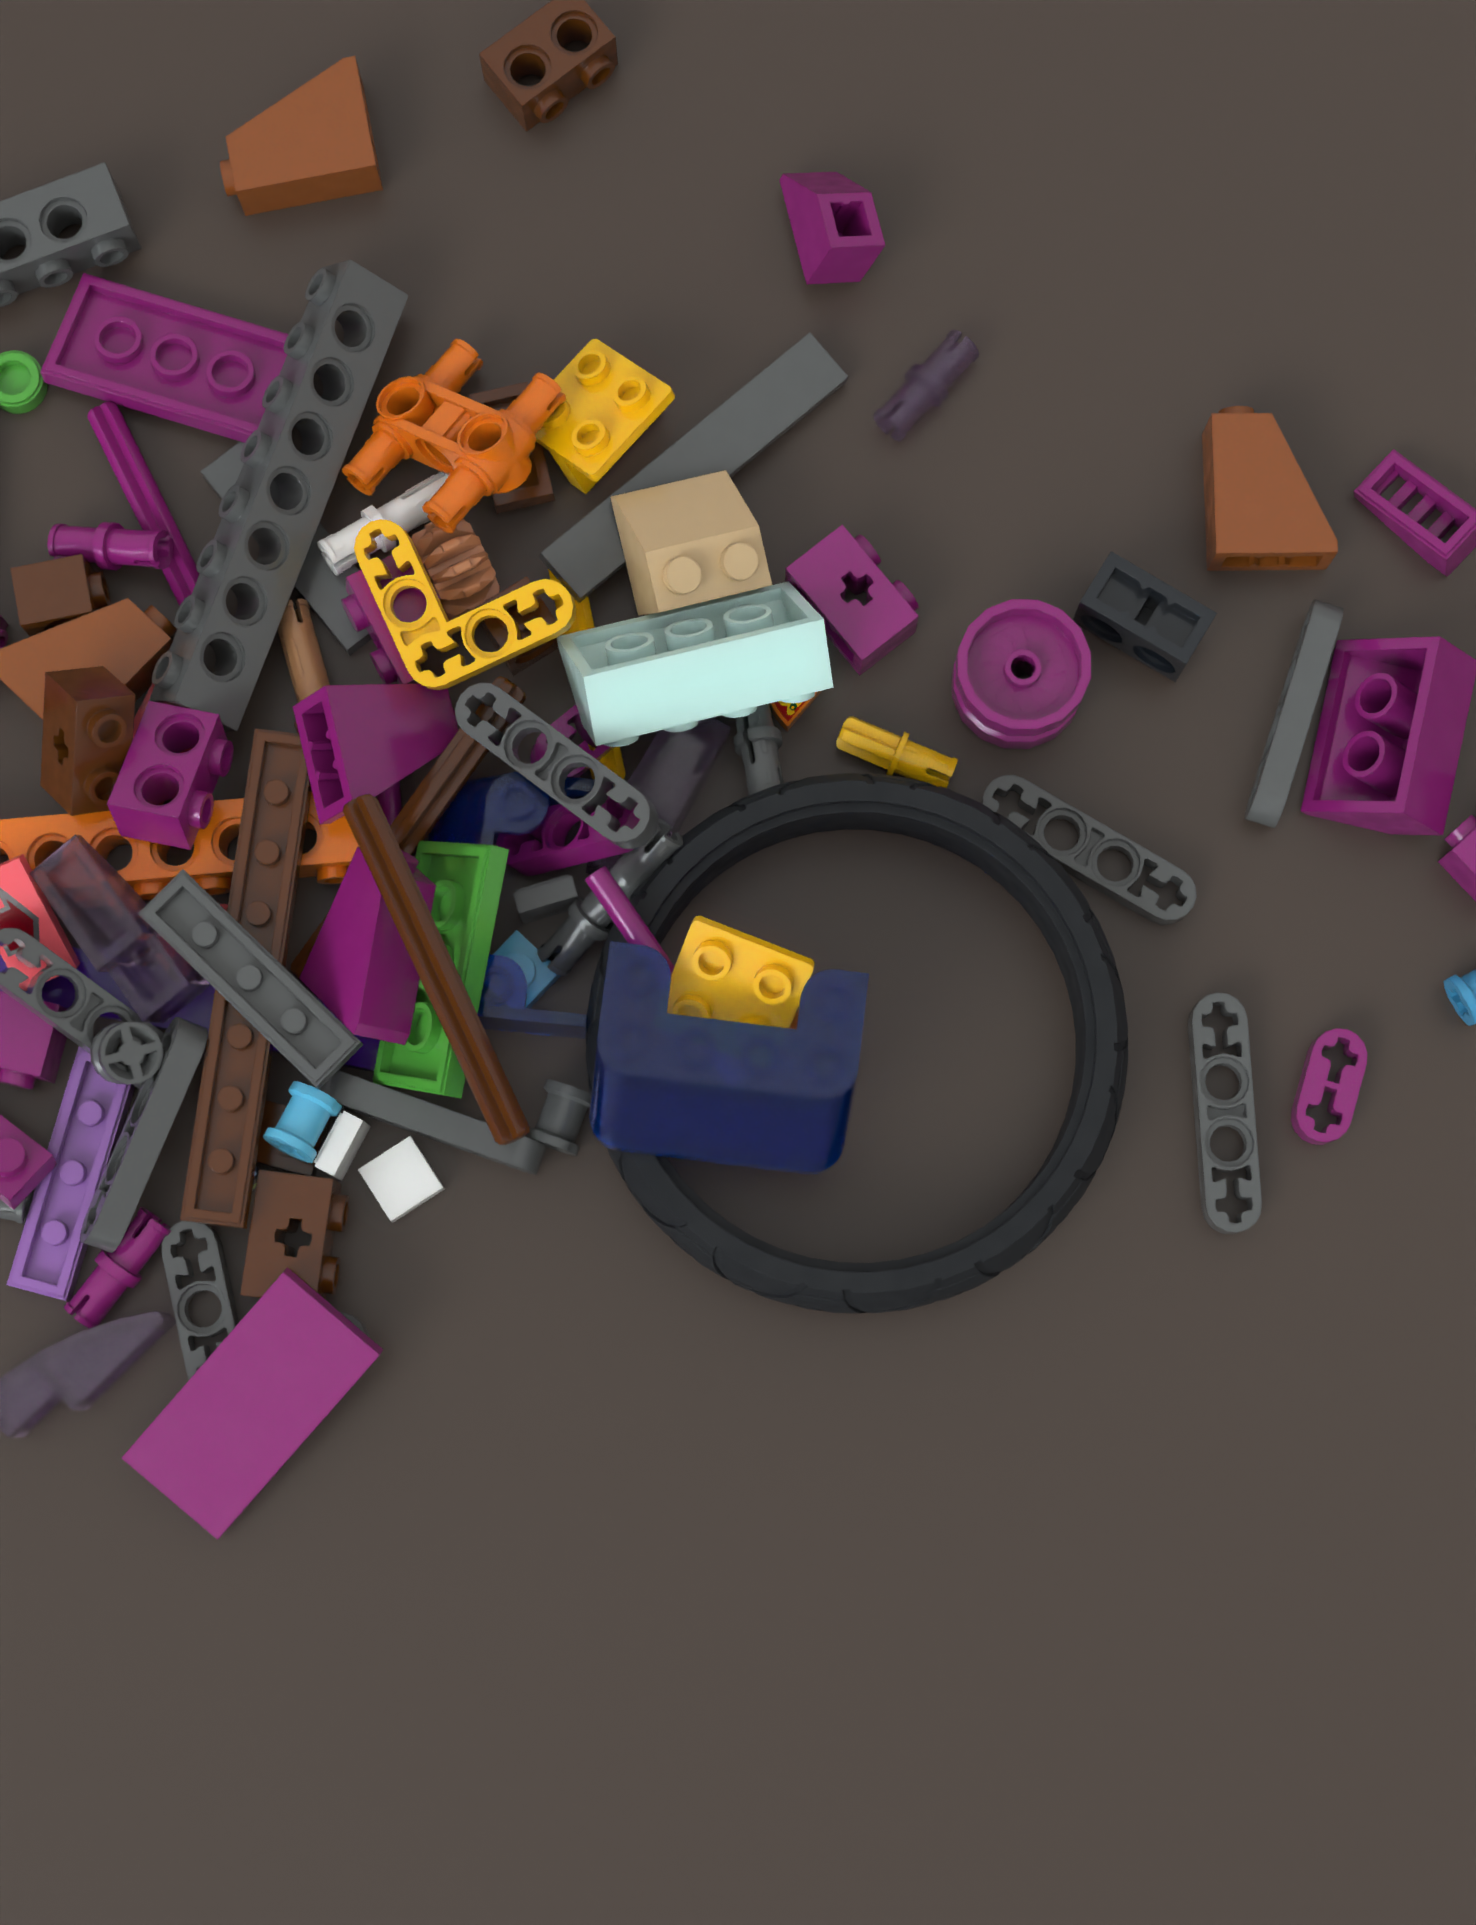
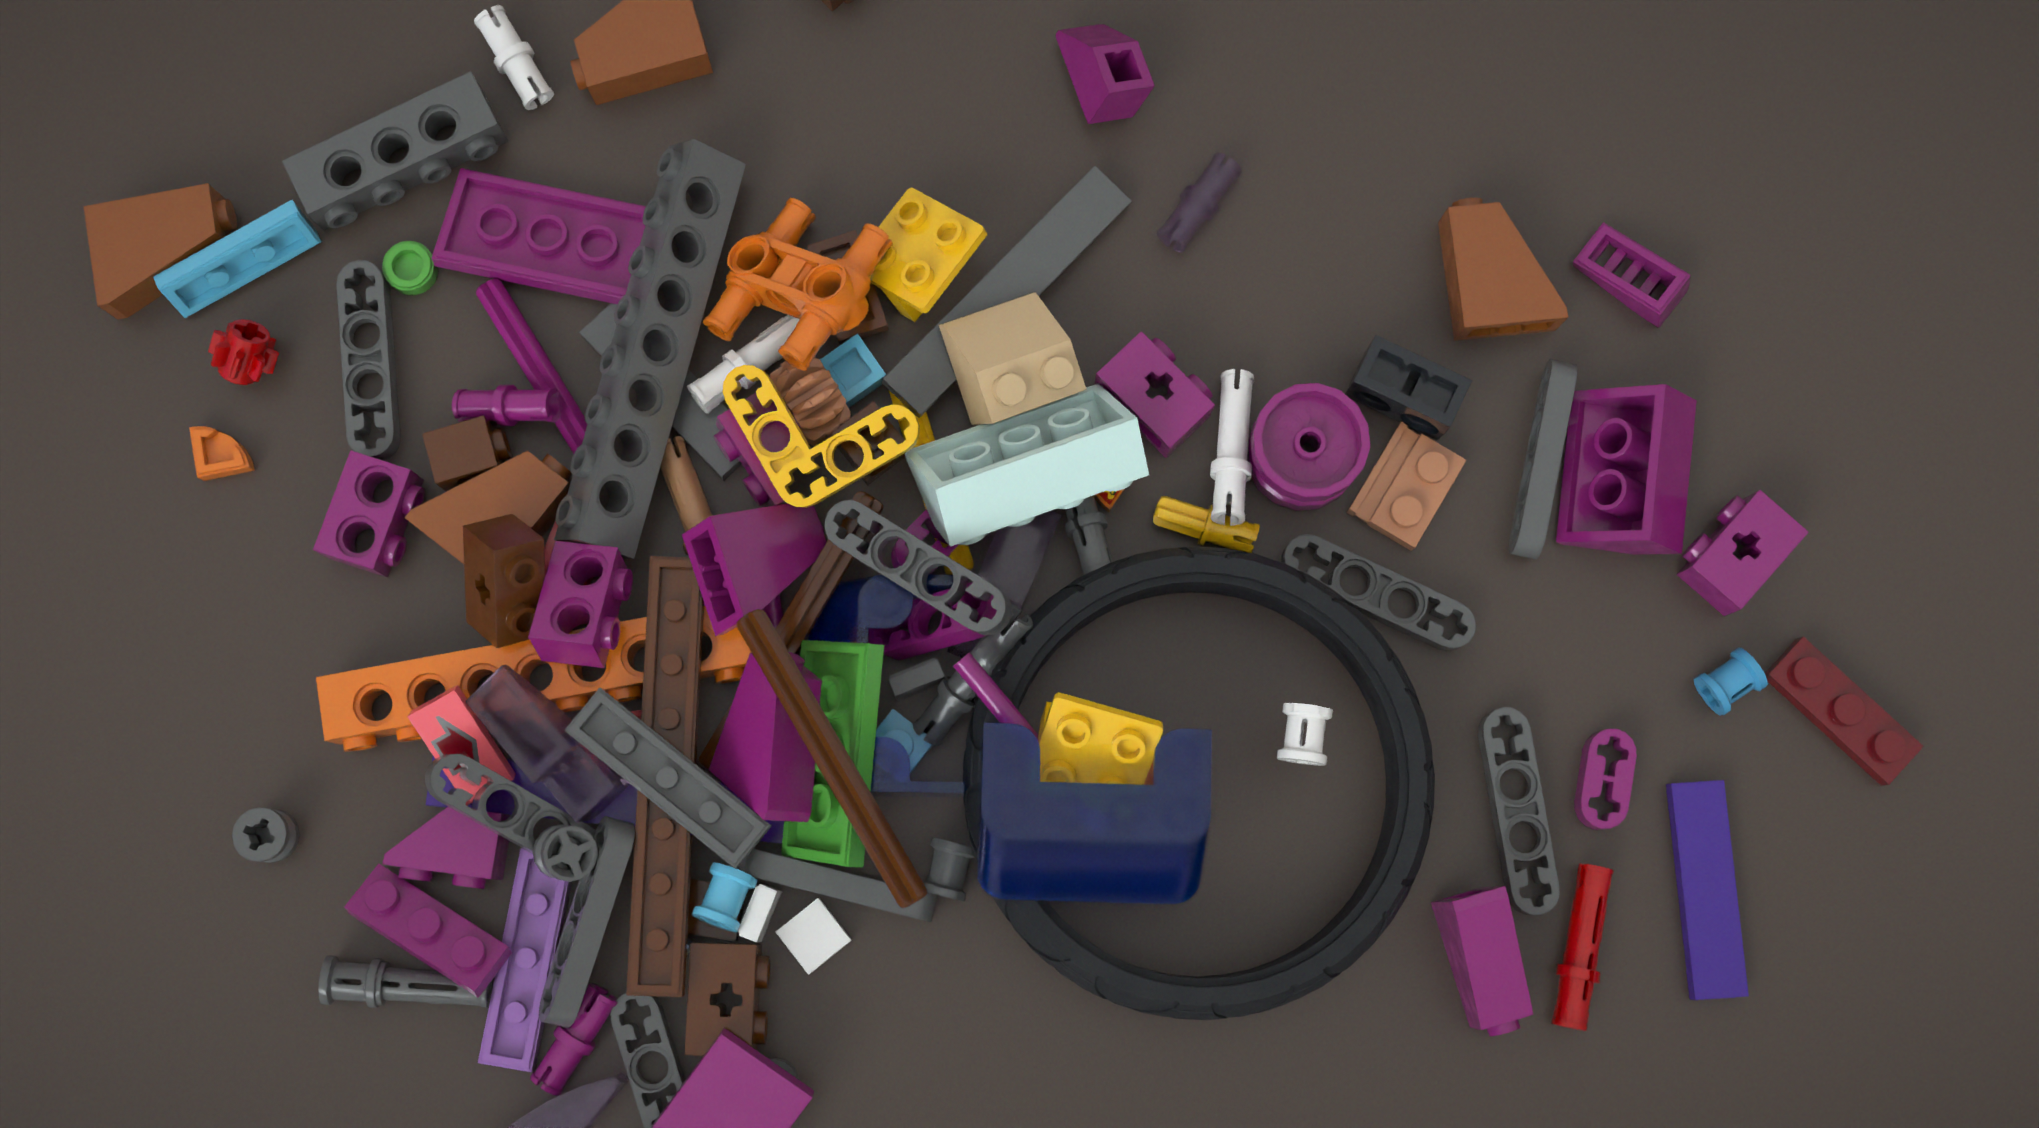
camera: 10 degrees left, 0 degrees up
(156, 152) = (513, 57): none -> white pin
(509, 541) = (854, 369): none -> medium azure plate
(932, 688) = (1231, 467): none -> white pin
(979, 994) = (1297, 716): none -> white bush
(1133, 731) = (1406, 486): none -> nougat plate
(1166, 1273) = (1485, 958): none -> magenta slope
(1279, 1284) = (1582, 947): none -> red pin
(1434, 1224) = (1707, 890): none -> dark purple tile

